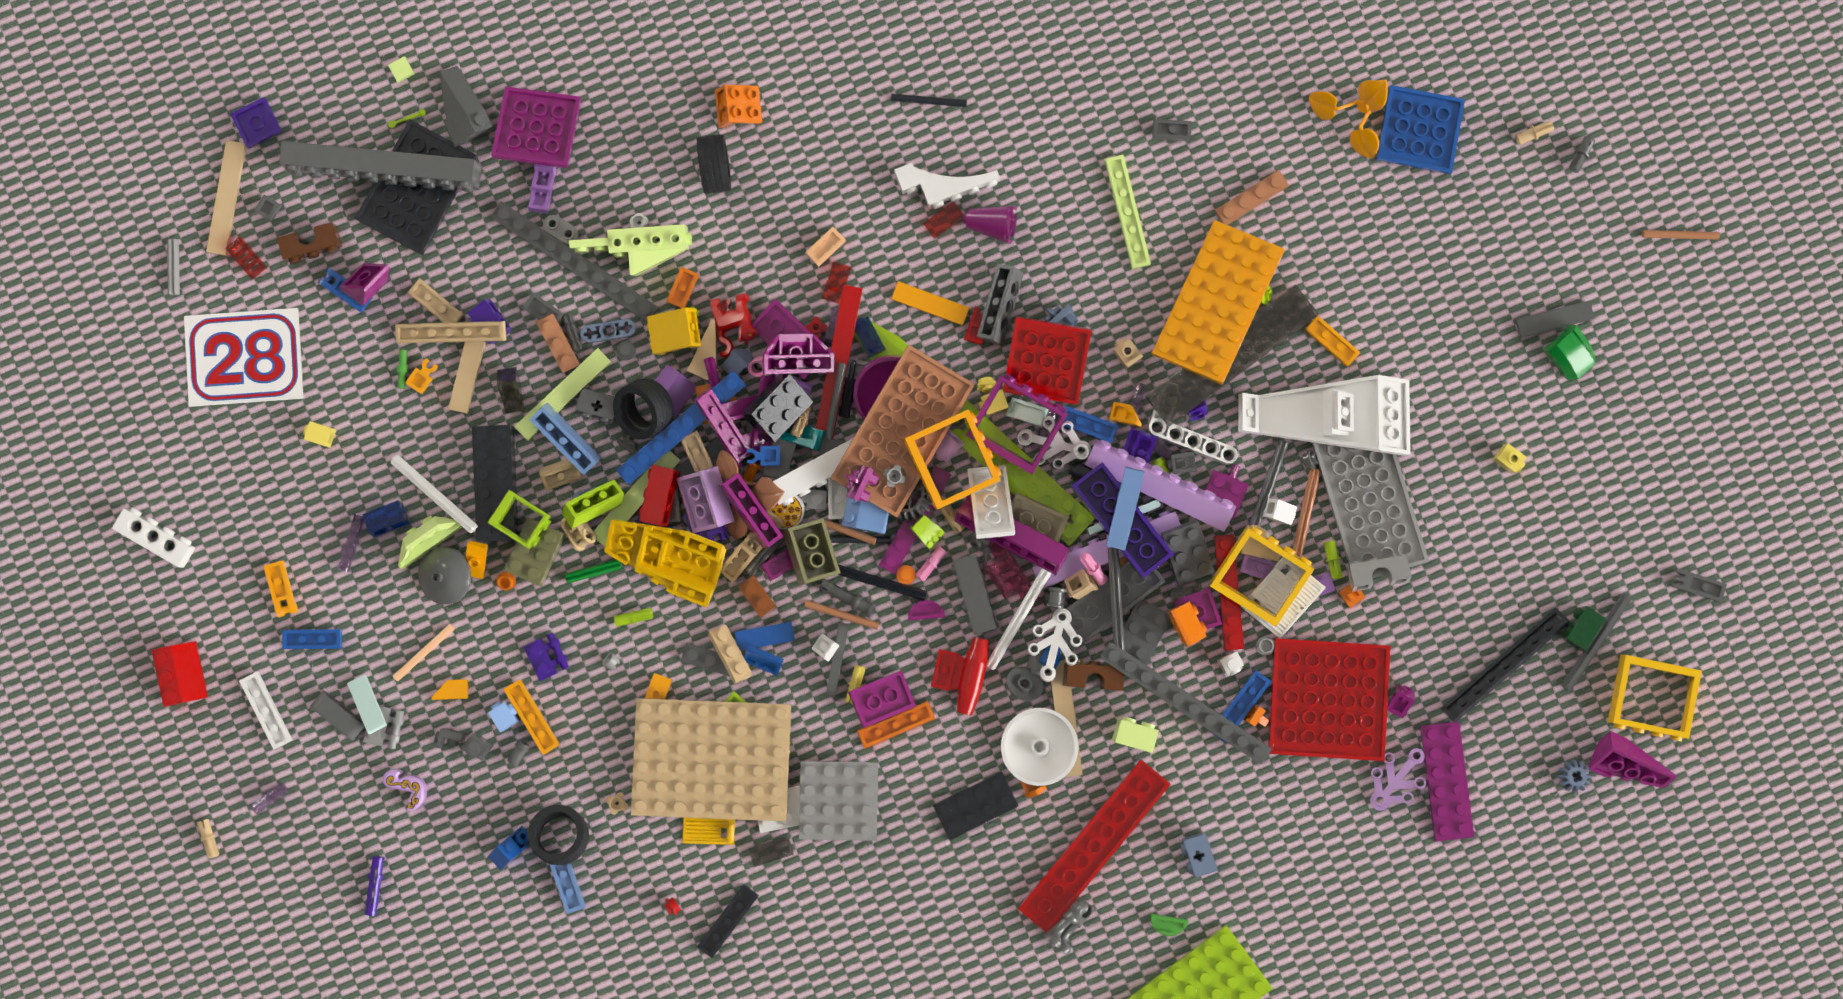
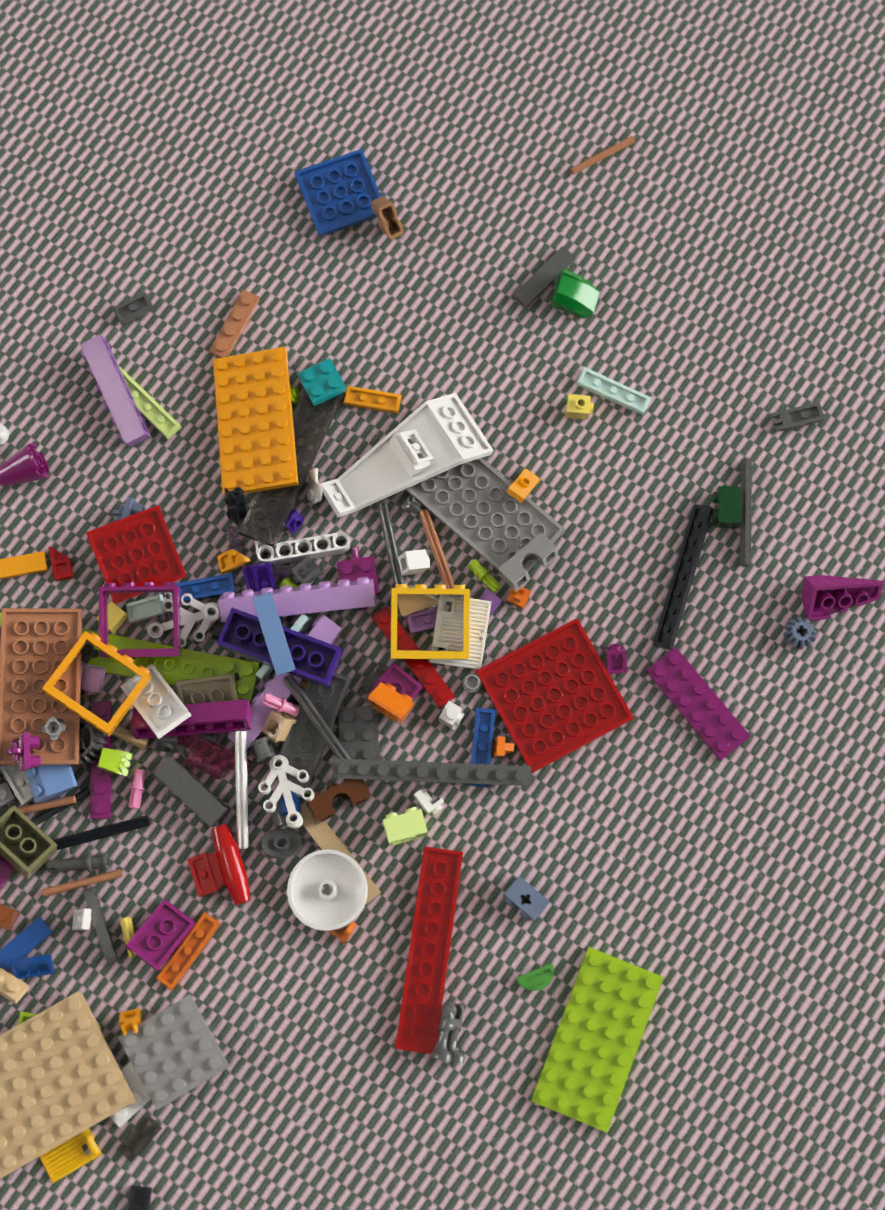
camera: 30 degrees left, 10 degrees down
(817, 753) = (129, 1020): none -> light orange plate
(906, 574) = (120, 812): orange plate -> none
(925, 610) = (155, 833): magenta plate -> none
(975, 805) = (302, 979): black plate -> none
(986, 384) = (93, 607): light yellow plate -> none
(1000, 304) = (68, 532): dark grey brick -> none
(1112, 199) = (115, 391): none -> medium lavender brick
(1127, 360) = (208, 513): tan brick -> none
(1156, 368) = (235, 505): none -> black hinge
(1164, 722) = (425, 802): none -> white bracket
(1190, 552) = (358, 643): dark grey plate -> none
(1234, 396) = (314, 494): none -> white plate
(1297, 300) = (321, 382): none -> teal plate
(1372, 97) = (281, 181): light orange plant -> none
(1396, 782) = (655, 730): lavender plant -> none
(1416, 500) = (523, 485): none -> light orange plate
(1448, 181) = (387, 217): none -> medium nougat brick
(1534, 132) = (434, 143): tan axle -> none
(1550, 462) = (613, 391): none -> light aqua tile
(1581, 154) = (483, 138): dark grey axle -> none
(1619, 692) = (825, 560): yellow window -> none

